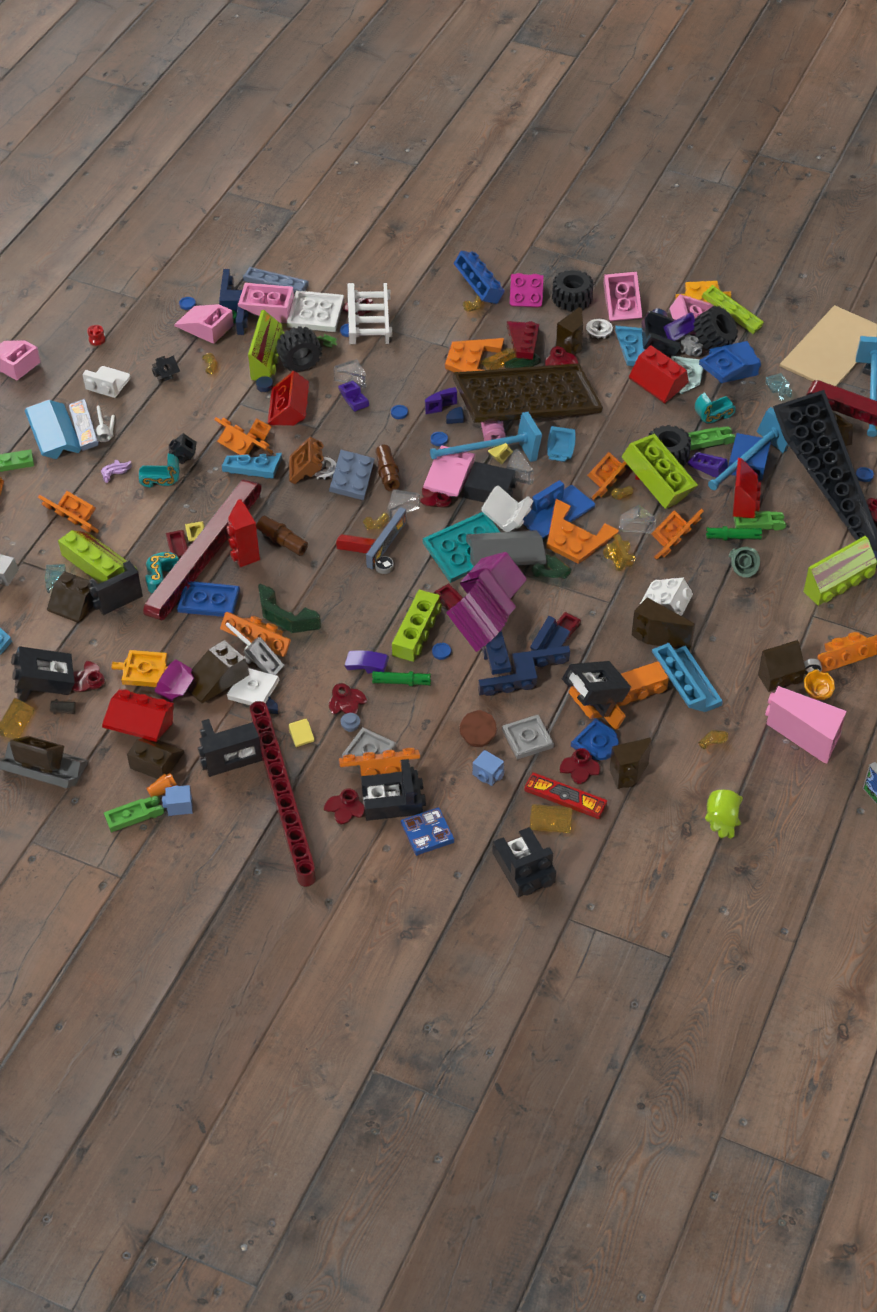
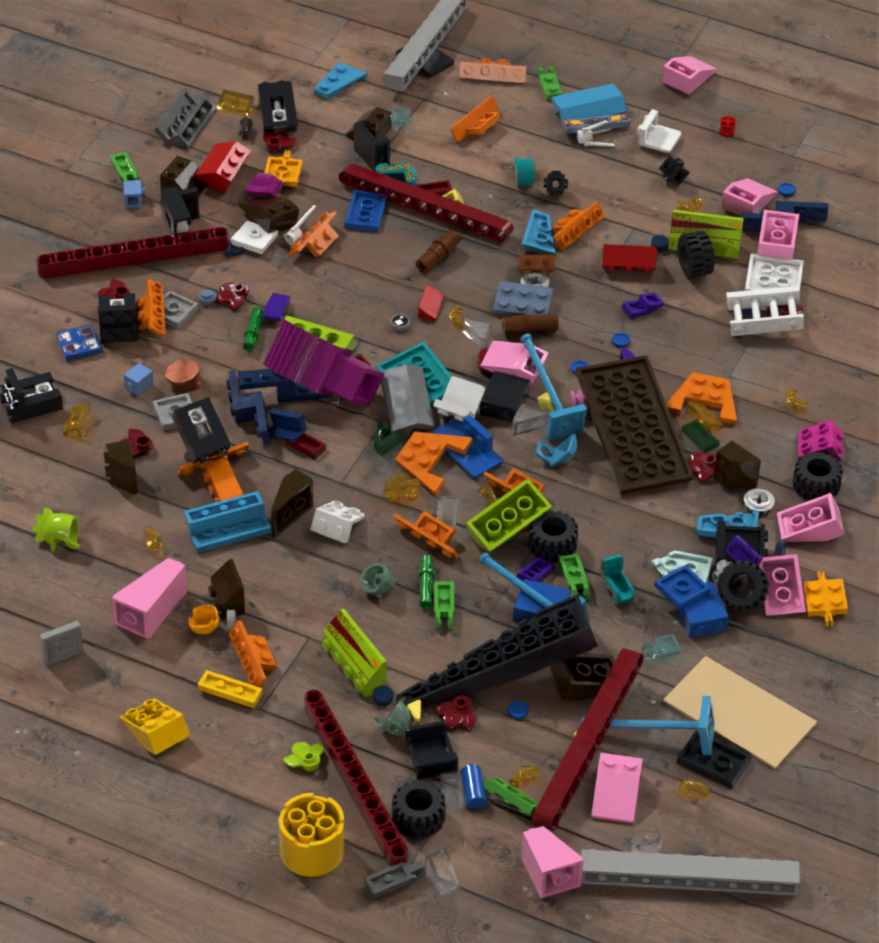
camera: 90 degrees right, 5 degrees down
(37, 753) = (182, 102): dark brown slope -> none
(91, 555) = (419, 137): lime slope -> none
(115, 468) = (538, 148): lavender piece -> none
(158, 787) = (151, 186): orange cone -> none
(242, 535) = (427, 214): red slope -> none
(260, 276) = (826, 251): sand blue tile -> none
(260, 429) = (587, 237): orange plate -> none
(264, 656) = (280, 237): flat silver plate -> none
(301, 732) = (198, 266): light yellow slope -> none
(305, 621) = (354, 241): clear green slope -> none
(328, 340) = (724, 280): bright green plate -> none
(350, 372) = (673, 302): clear slope -> none
(386, 537) = (433, 321): sand blue tile -> none
(479, 277) = (835, 399): blue brick -> none
(523, 338) = (744, 433): dark red wing -> none
(565, 795) = (102, 432): tile -> none
(596, 739) = (163, 458): blue tile -> none
(658, 374) = (674, 539): red slope -> none
(738, 312) = (794, 617): lime tile -> none
(746, 491) = (476, 582): red slope -> none

